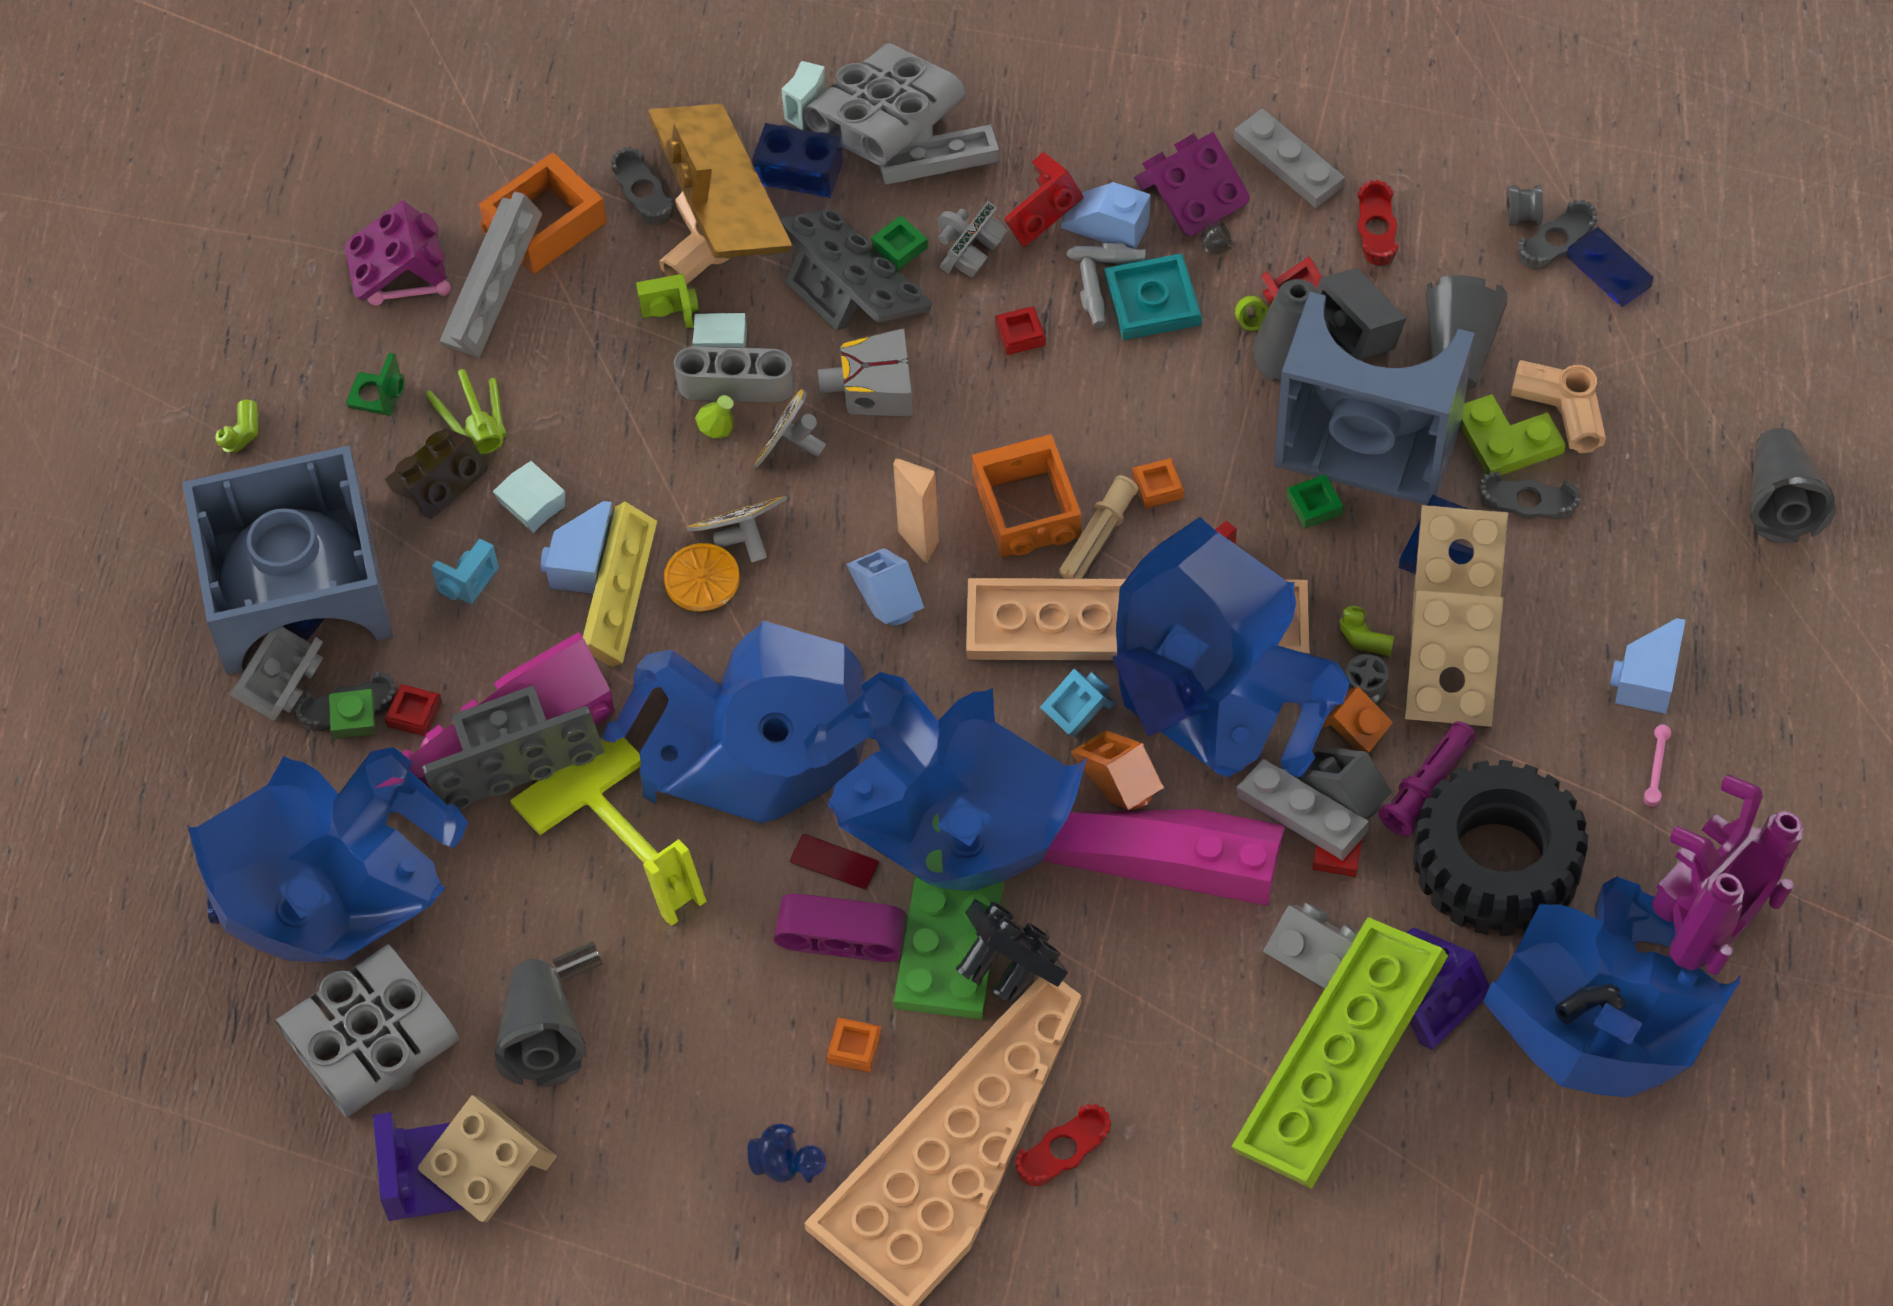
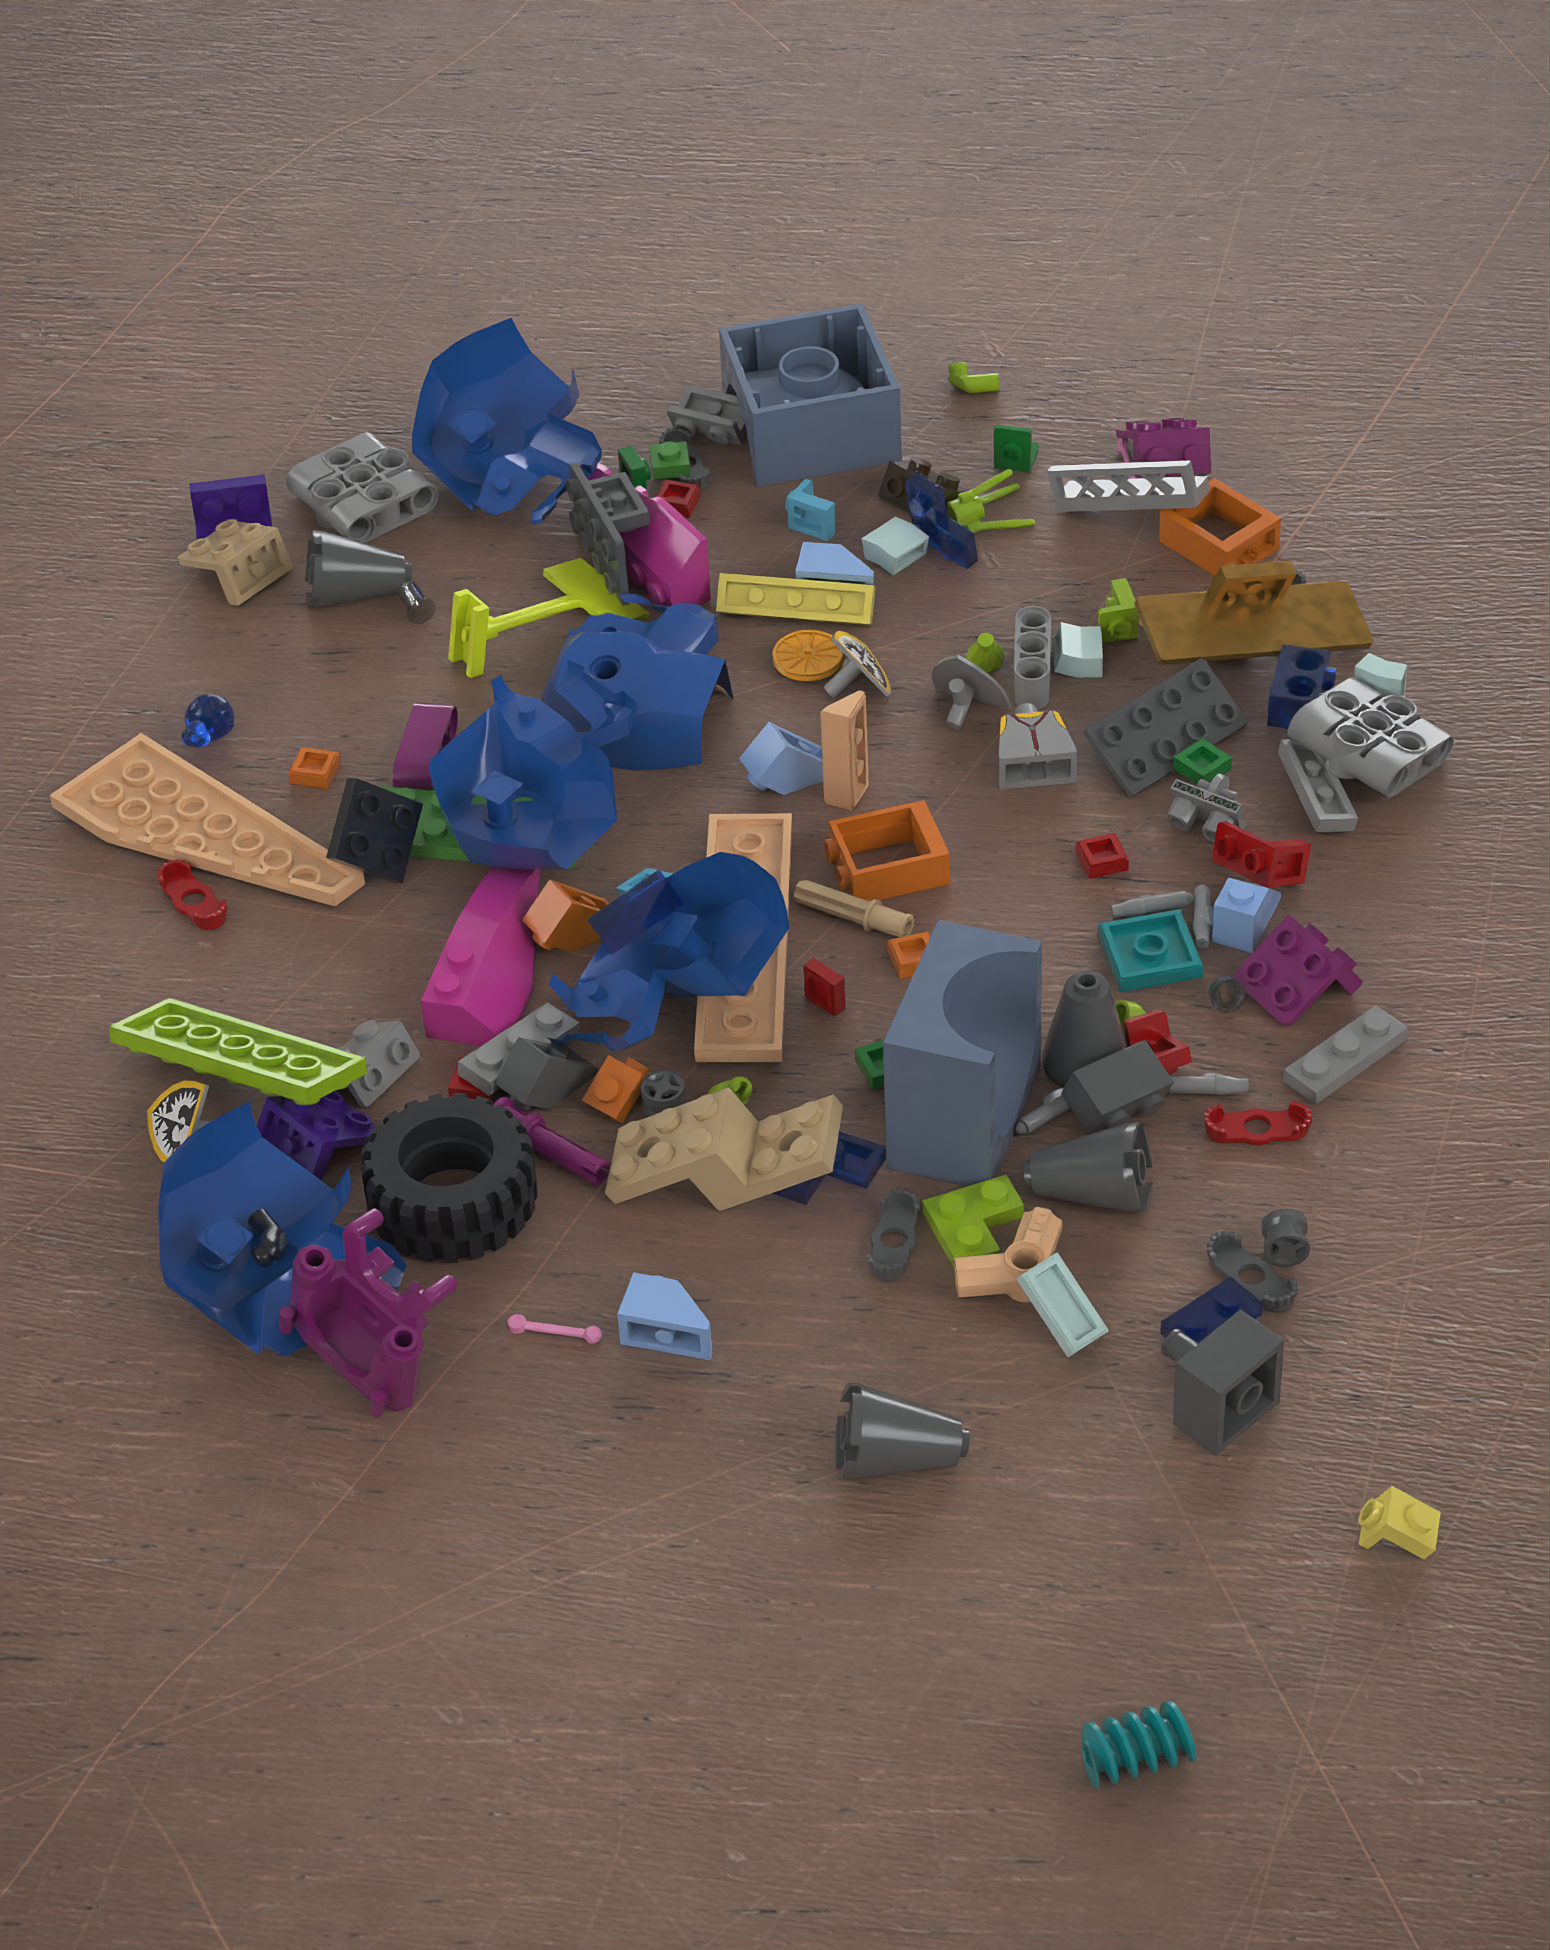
camera: 90 degrees right, 15 degrees down
(372, 739) = (634, 466): none -> green plate
(517, 445) = (930, 516): none -> clear blue plate
(1328, 251) = (1209, 1084): none -> light grey piece
(1429, 1108) = (176, 1116): none -> shield
(1620, 361) = (1062, 1304): none -> light aqua tile
(1710, 242) = (1224, 1379): none -> dark grey brick
(1827, 151) = (1400, 1521): none -> light yellow bracket

